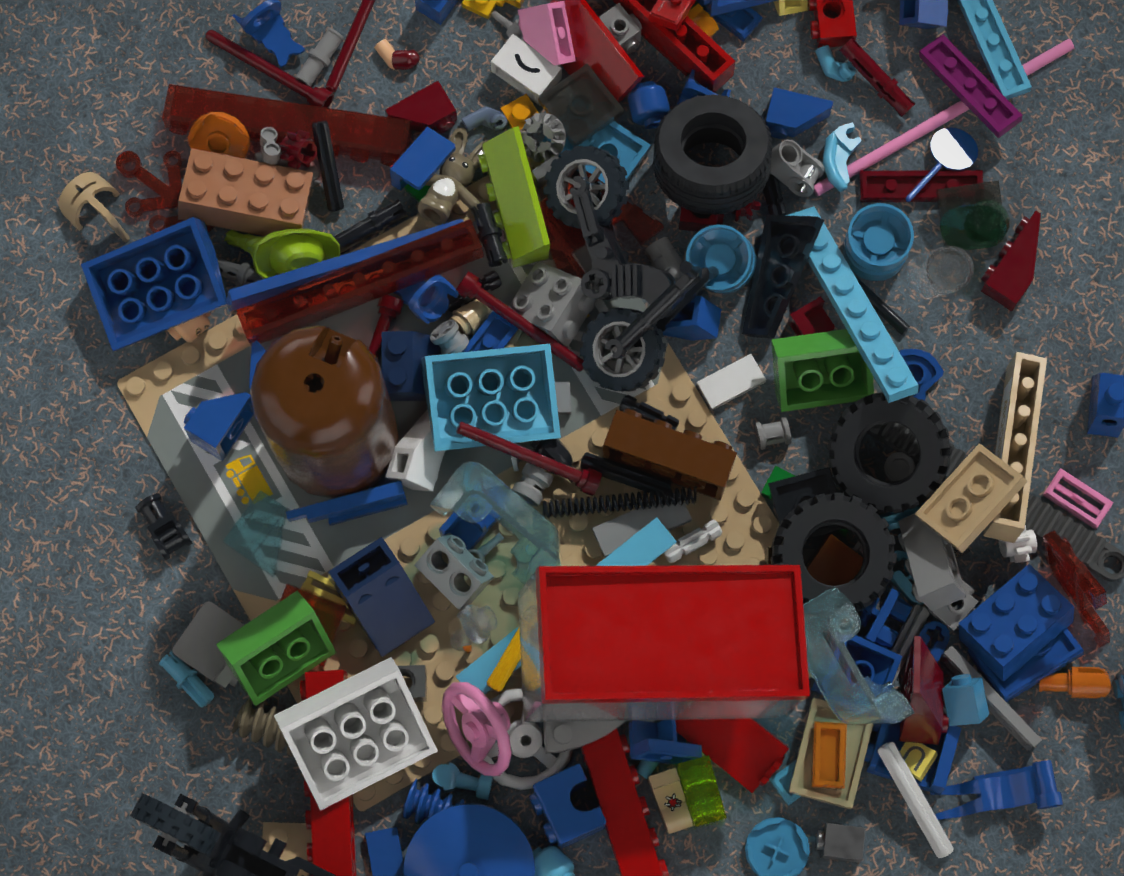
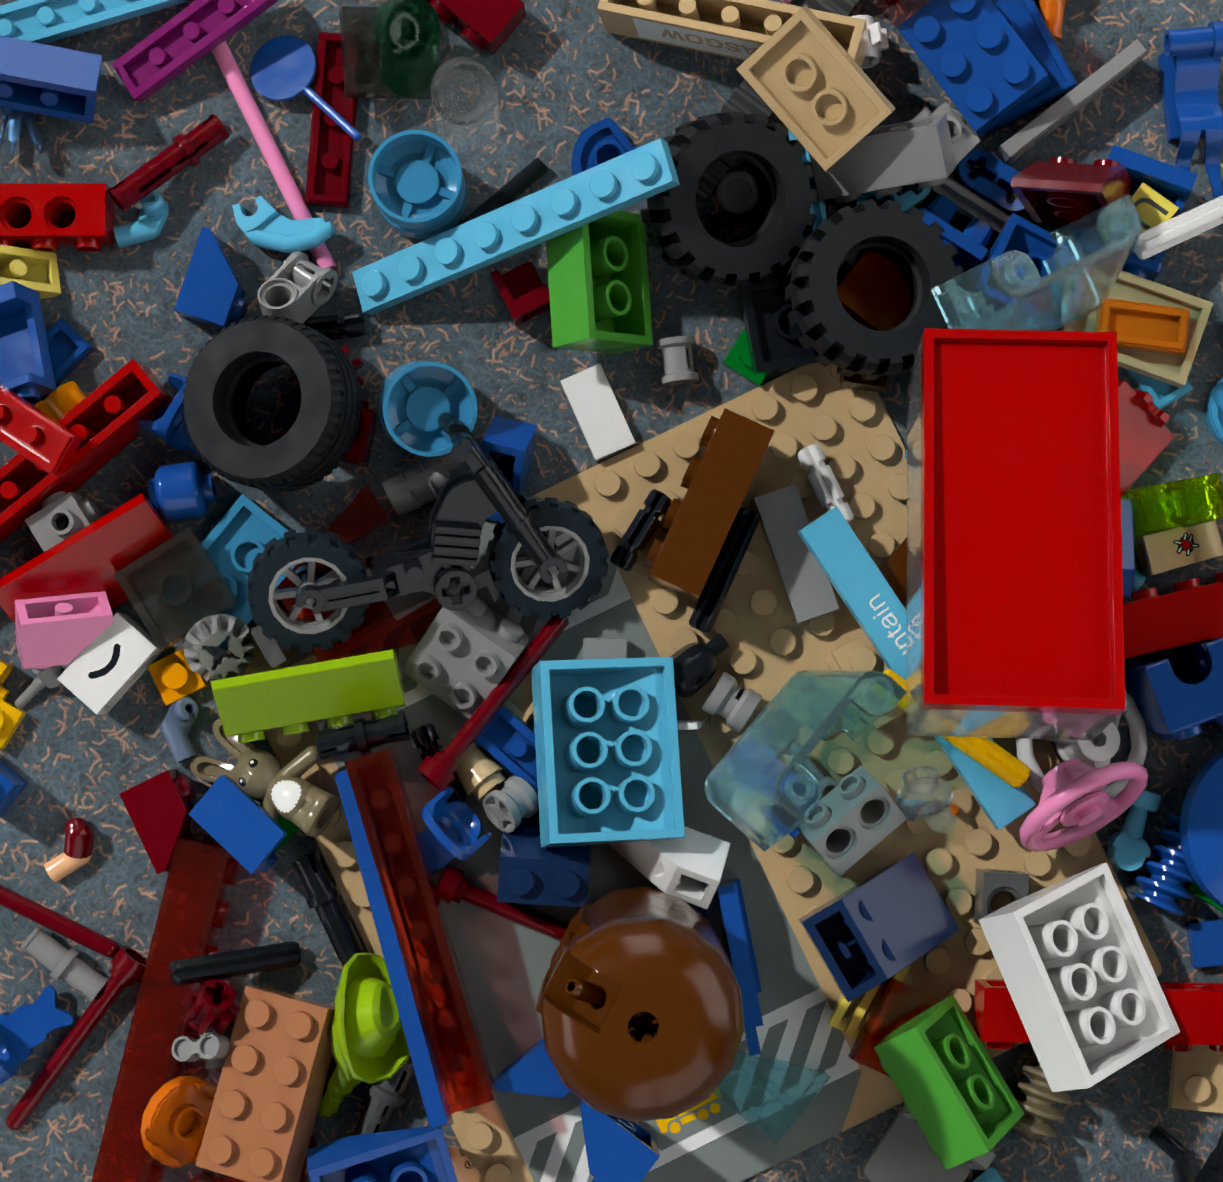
camera: 85 degrees left, 10 degrees up
(586, 480) = (731, 624): dark red piece -> none
(620, 502) = (767, 580): black piece -> none
(779, 265) = (438, 326): black wing -> none
(965, 700) = (1081, 134): dark azure brick -> none

